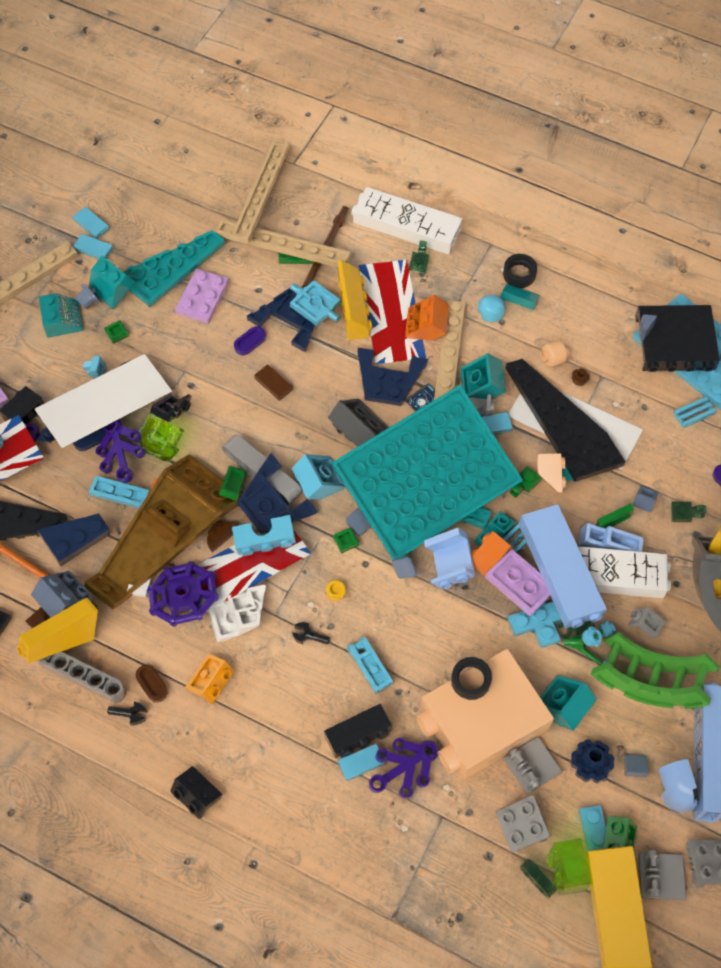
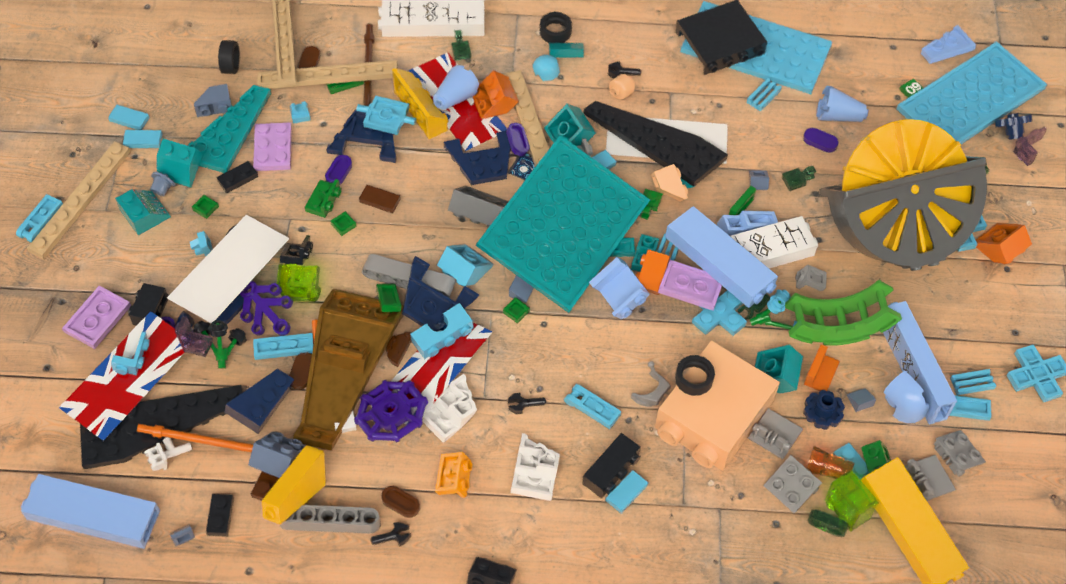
camera: 25 degrees left, 5 degrees down
(39, 456) = (191, 341): none -> bracket
(62, 457) = (219, 329): none -> black plant
(121, 522) = (300, 370): none -> reddish brown tile
(157, 314) = (237, 177): none -> black plate
(170, 233) = (213, 101): none -> sand blue slope
(201, 195) = (229, 57): none -> black tyre
(223, 362) = (323, 198): none -> green bracket
(229, 394) = (343, 223): none -> green tile
(241, 271) = (299, 112): none -> medium azure tile
(275, 221) = (309, 58): none -> reddish brown tile
(285, 704) = (535, 470): none -> white slope
(335, 590) = (529, 356): yellow tile -> none
(390, 299) = (456, 87): none -> light blue cone
(404, 567) = (582, 311): sand blue slope -> none
(406, 765) = (669, 476): dark purple plant -> none
(428, 371) = (517, 139): none -> dark purple tile
(438, 678) = (656, 396): none -> light grey helmet
(564, 337) = (620, 70): none -> black bar
(567, 820) = (828, 464): none -> clear orange plant
(580, 381) = (653, 99): reddish brown plate -> none
(610, 720) = (821, 370): none -> orange panel
(646, 324) = (692, 32): sand blue slope -> none

